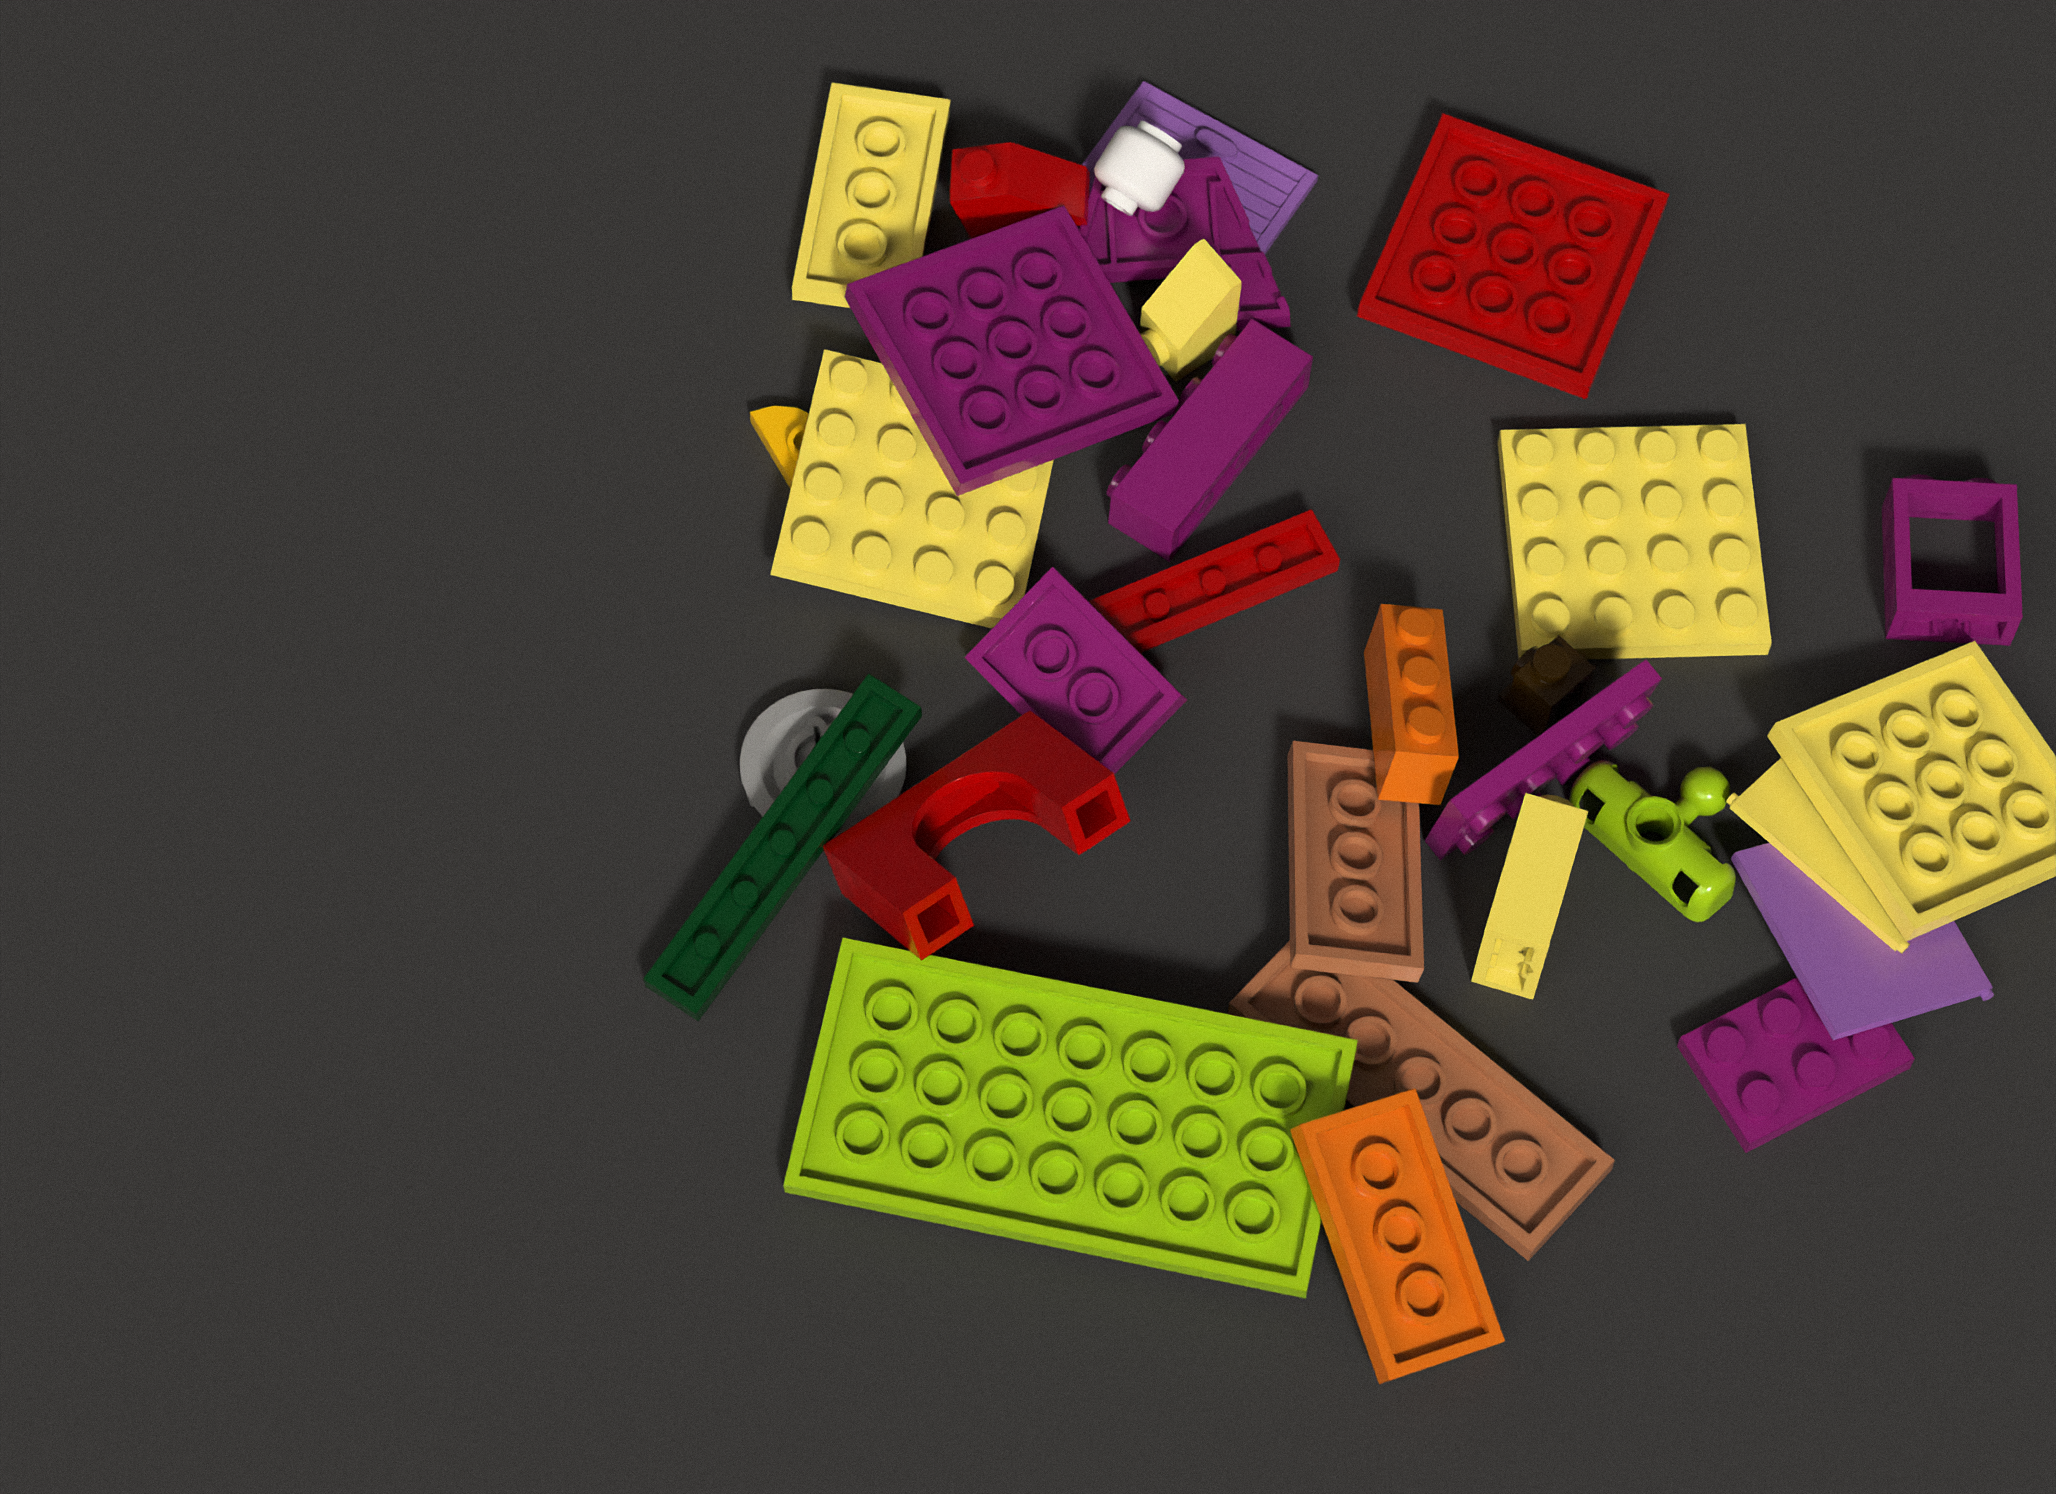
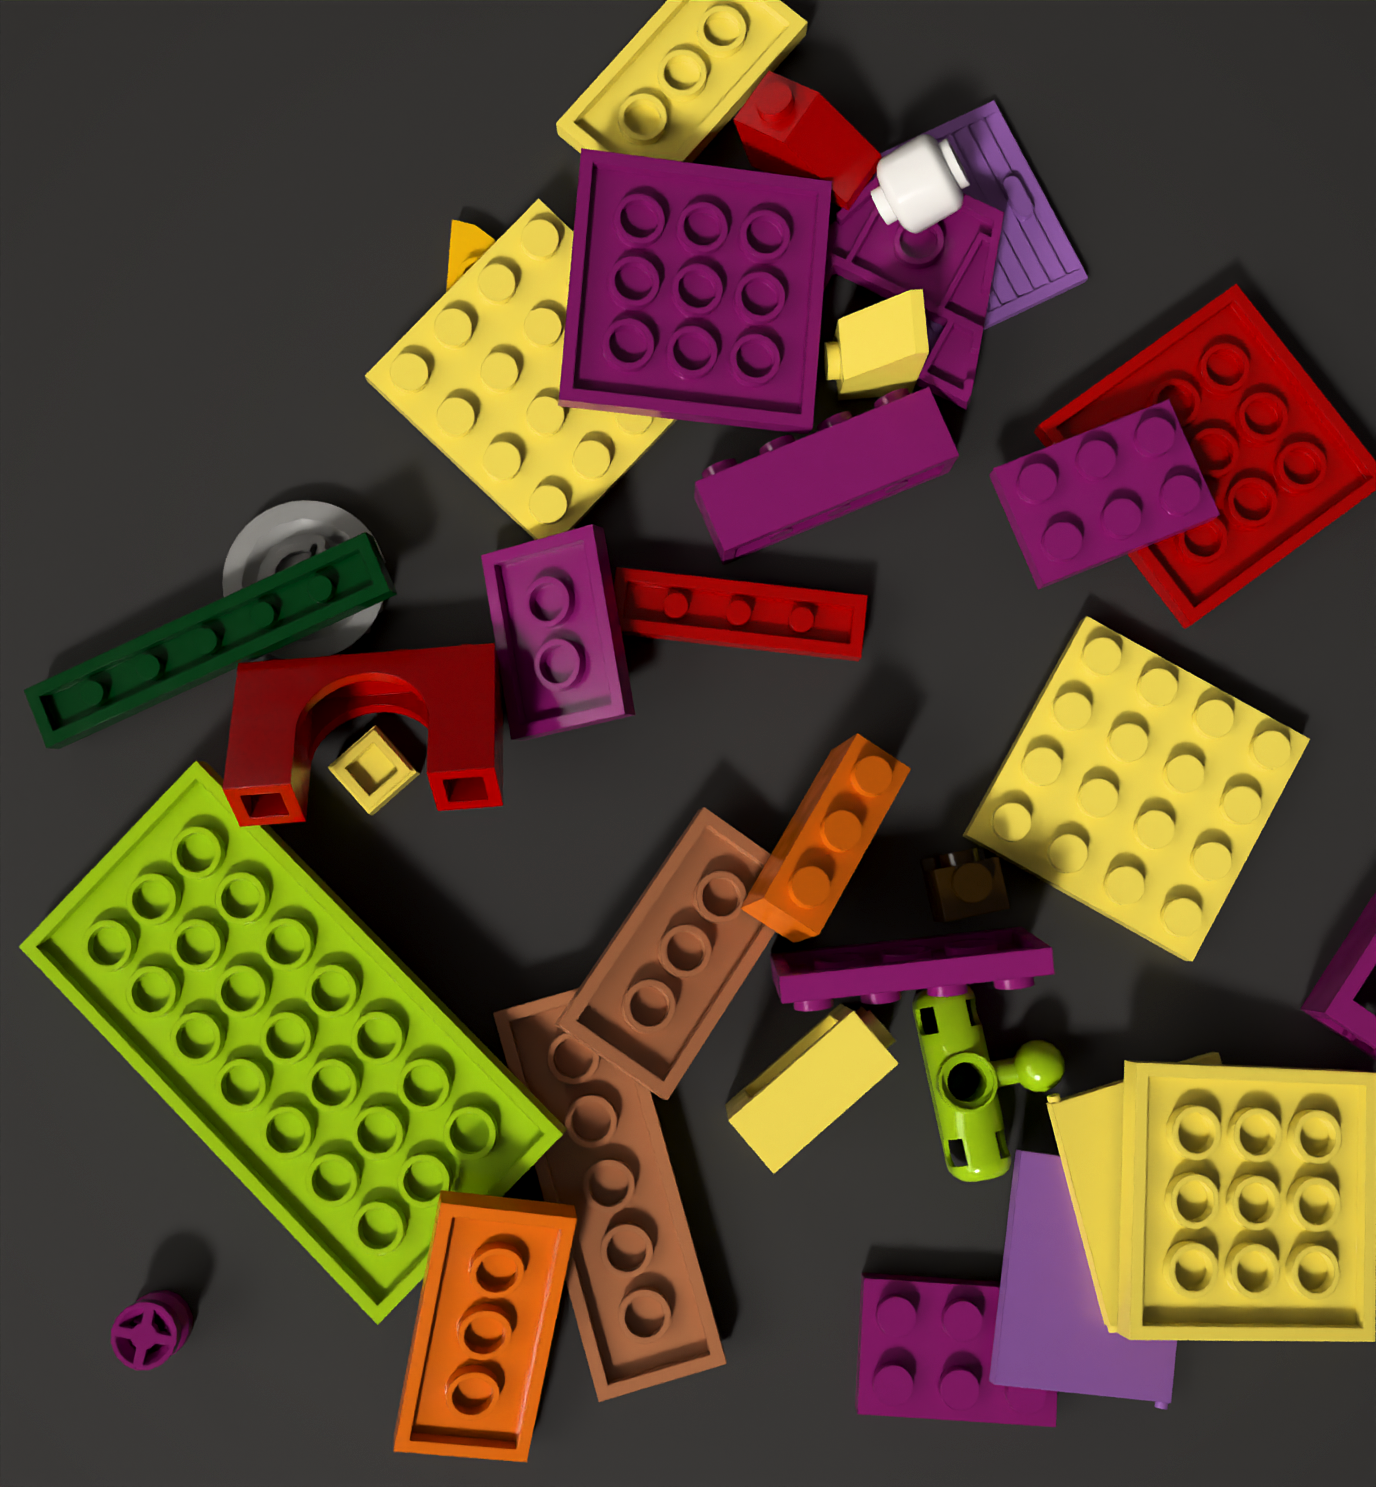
camera: 35 degrees right, 20 degrees up
(990, 882) = (373, 770): none -> light yellow tile
(1111, 1412) = (137, 1336): none -> magenta wheel
(1449, 326) = (1103, 494): none -> magenta plate

